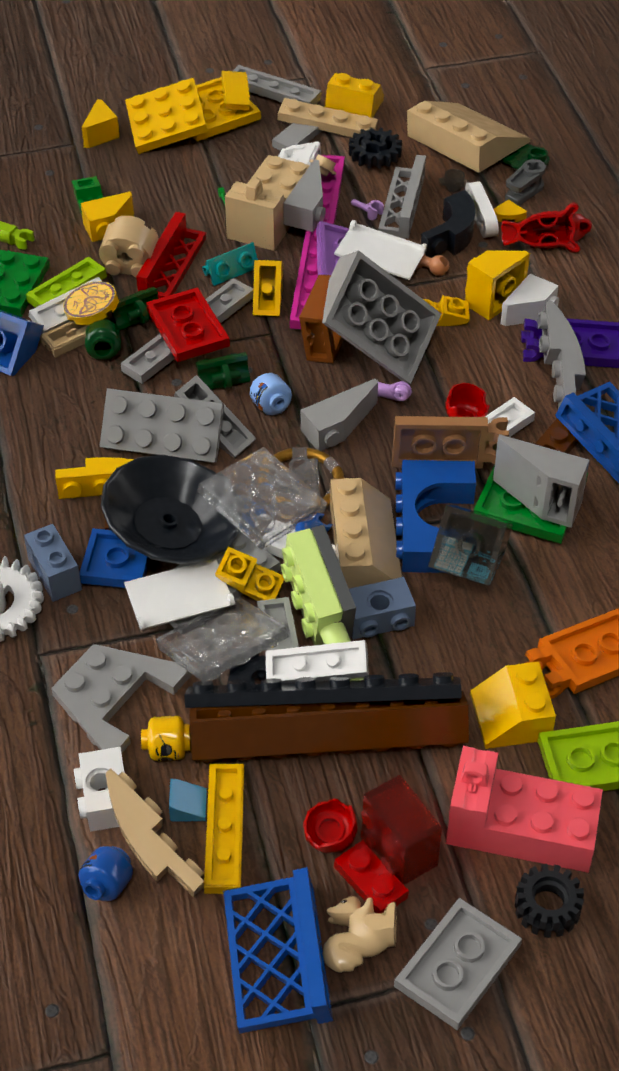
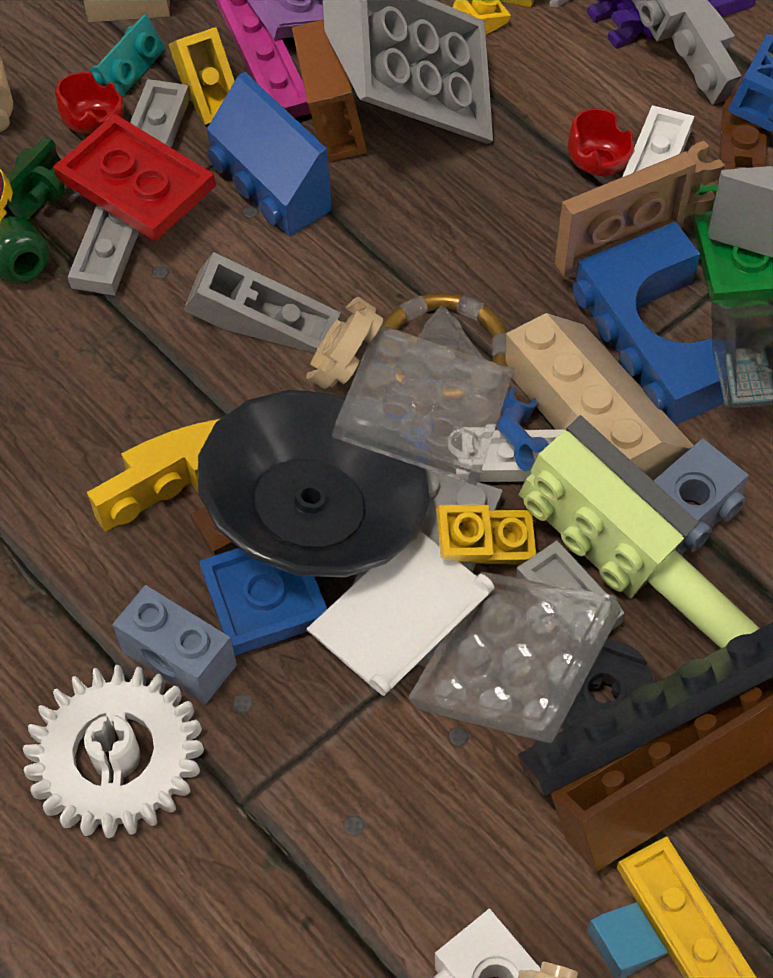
camera: 25 degrees left, 10 degrees up
(104, 682) = (371, 815): light grey wing -> none
(162, 425) = (198, 350): light grey plate -> none
(163, 258) = (18, 71): red fence -> none
(166, 738) = (533, 852): yellow head -> none
(190, 275) = (85, 103): none -> red hair
(224, 370) = (226, 228): dark green hips -> none
(240, 449) = (336, 352): none -> tan plate
(268, 339) = (270, 157): none -> blue slope
(270, 394) = (318, 235): light blue head -> none
(318, 661) = (686, 631): white plate -> none
(336, 417) = (428, 241): light grey slope -> none
(397, 391) = (489, 159): lavender arm -> none

